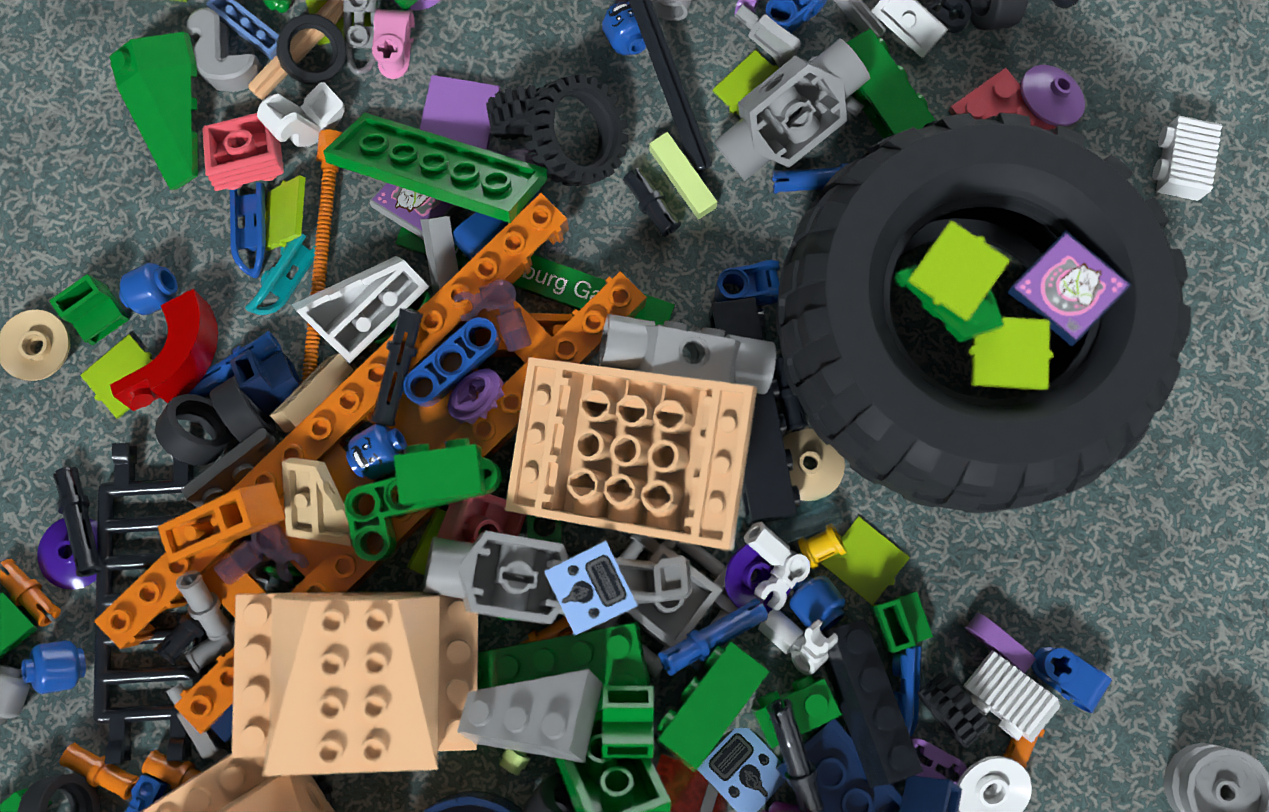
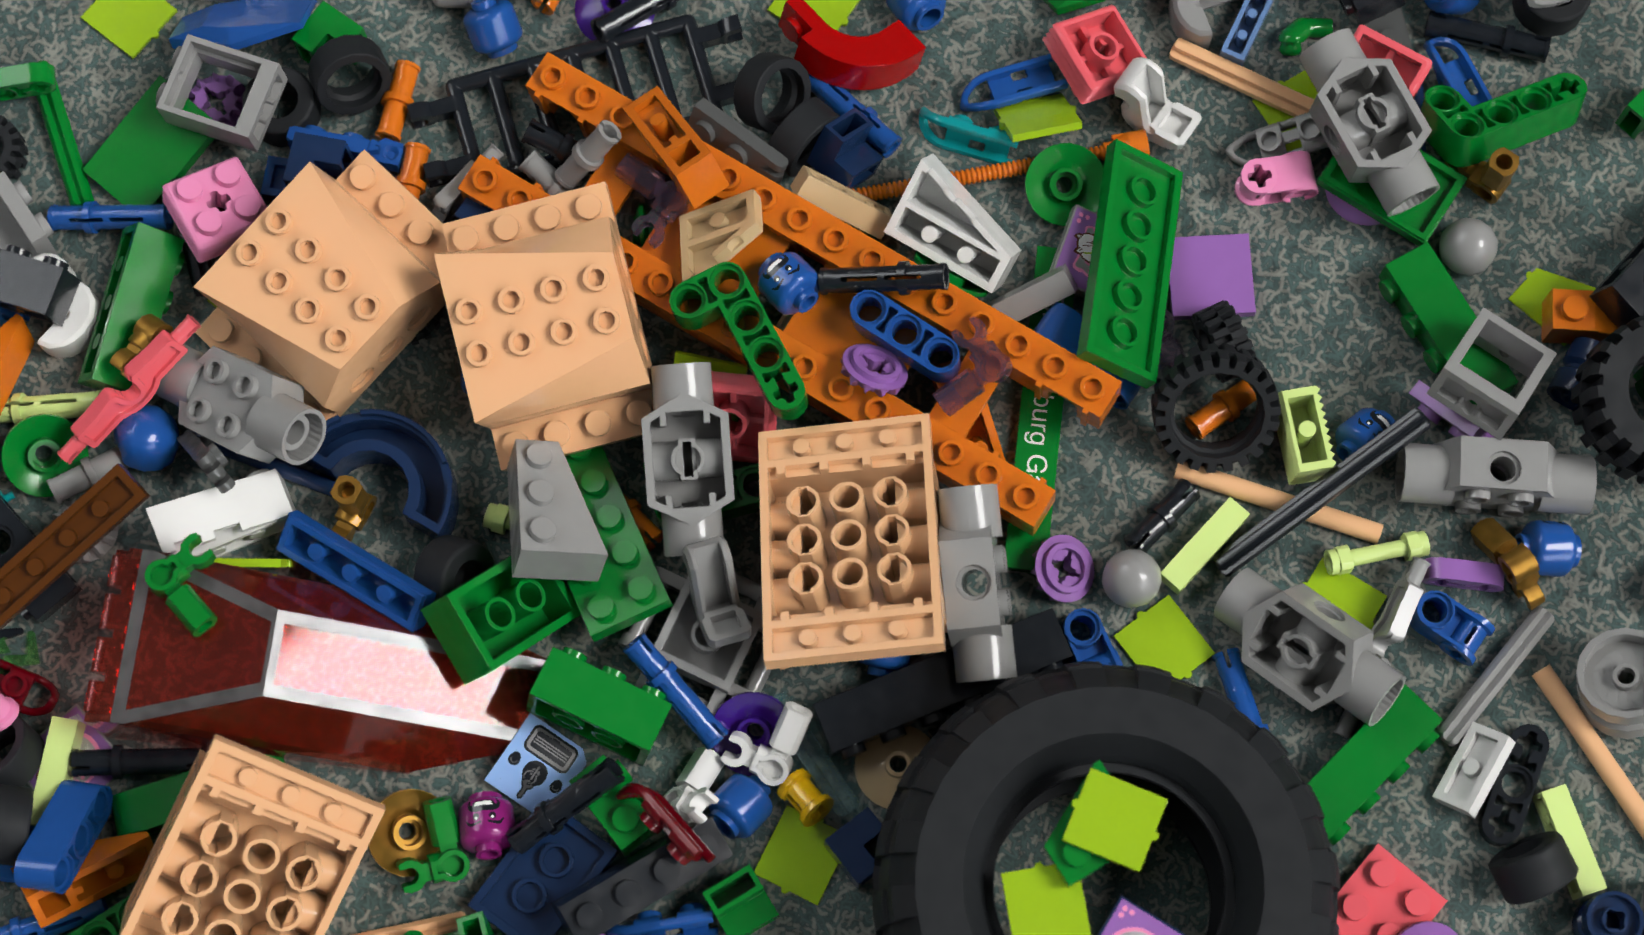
camera: 75 degrees right, 5 degrees down
(330, 31) = (1206, 89): black tyre -> none
(342, 190) = (1067, 161): none -> green dish
(439, 473) = (775, 349): green brick -> none
(572, 131) = (1224, 406): none -> orange pin
(590, 588) = (693, 535): sticker -> none
(622, 71) = (1304, 435): none -> yellowish green brick
(628, 722) = (563, 614): green piece -> none
(659, 111) = (1274, 499): none -> light nougat piece
(670, 279) = (1076, 562): none -> medium lavender gear
(699, 236) = (1131, 578): none -> light grey piece
(720, 70) = (1342, 560): none -> yellowish green bar
(754, 228) = (1165, 640): none -> lime piece
(826, 671) = (660, 816): none -> dark red piece
(869, 516) = (850, 844): none -> dark blue piece

